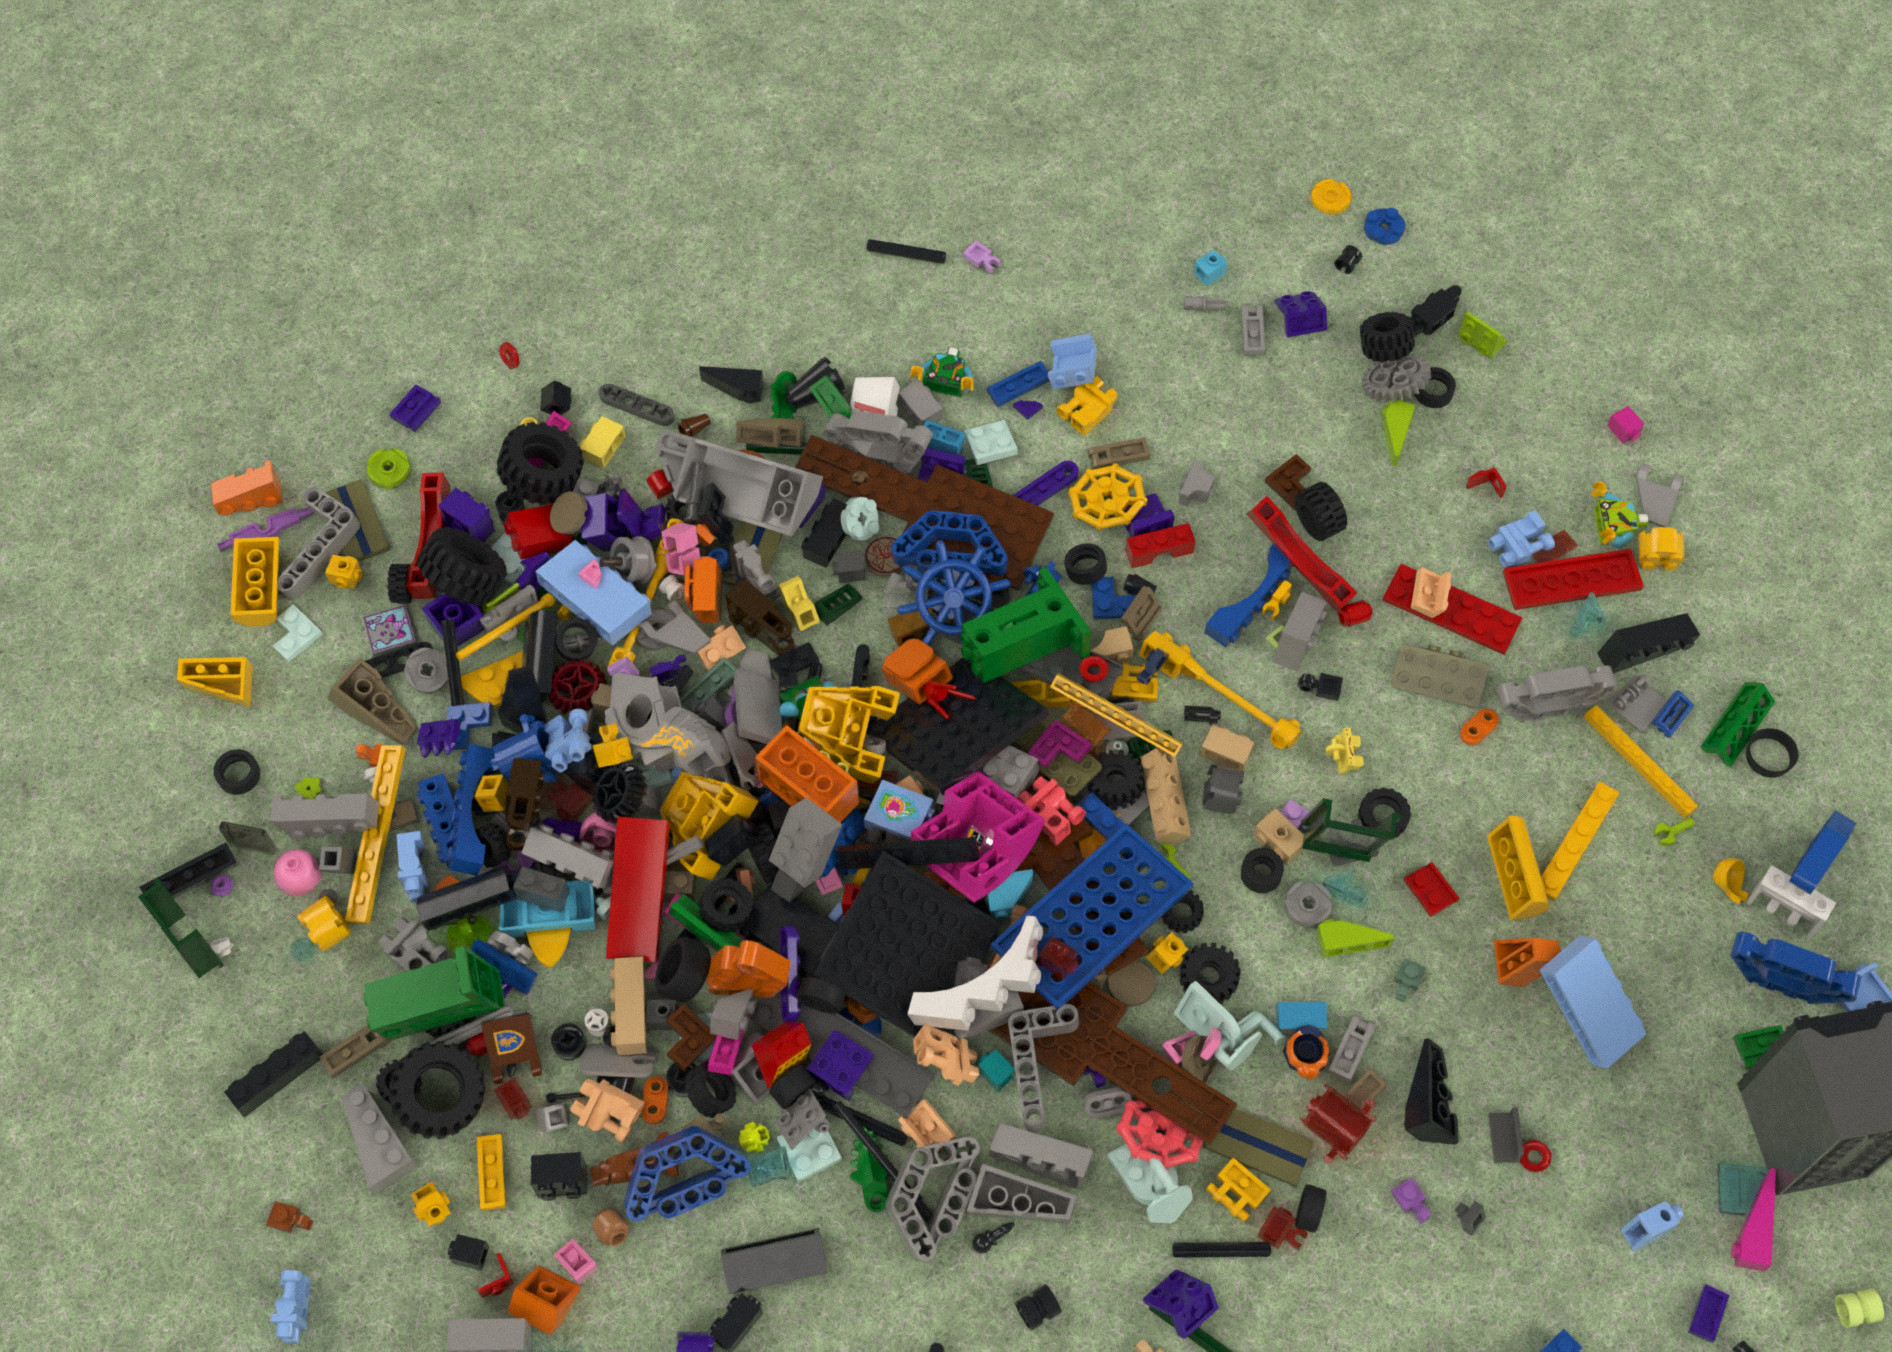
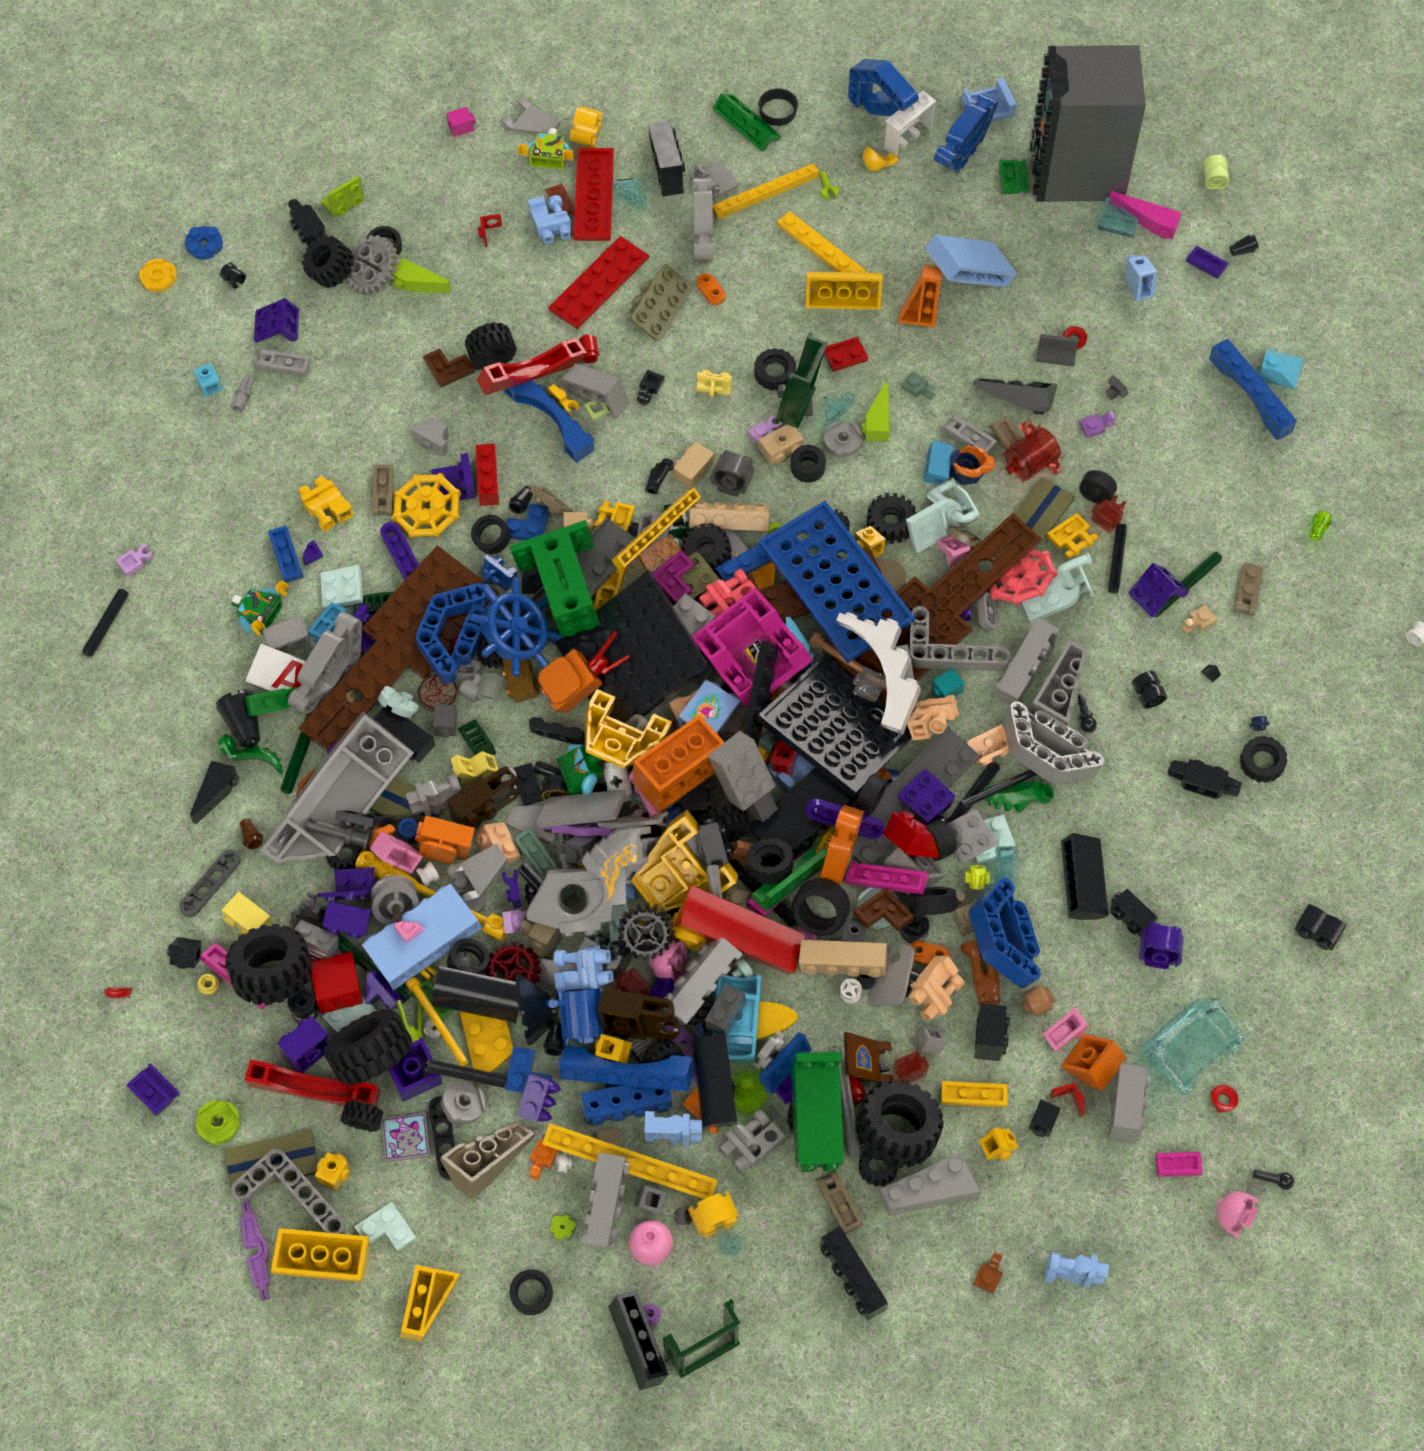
camera: 80 degrees left, 0 degrees up
(222, 946) = (714, 1317): white plate -> none
(247, 491) = (211, 1260): orange wedge -> none
(247, 837) = (611, 1279): clear smoke tile -> none
(509, 608) = (419, 1017): light grey hinge -> none
(551, 1097) = (911, 1039): black hinge -> none
(565, 1032) = (858, 1023): black wheel -> none
(568, 513) = (334, 943): dark tan tile -> none
(612, 750) = (604, 927): yellow brick -> none
(659, 484) = (308, 872): red brick -> none
(732, 1014) = (873, 870): light grey slope -> none
(771, 432) = (283, 762): dark tan slope -> none
(1058, 958) = (876, 605): clear red brick -> none
(1073, 361) = (281, 503): light blue panel -> none
(1094, 661) = (607, 530): red piece -> none
(1154, 663) = (608, 496): dark blue plate -> none
(1180, 661) = (602, 487): yellow bar -> none
(1211, 1043) = (959, 520): bright pink tile -> none
(1431, 592) = (588, 286): light nougat bracket -> none
(1662, 726) = (729, 160): blue tile -> none

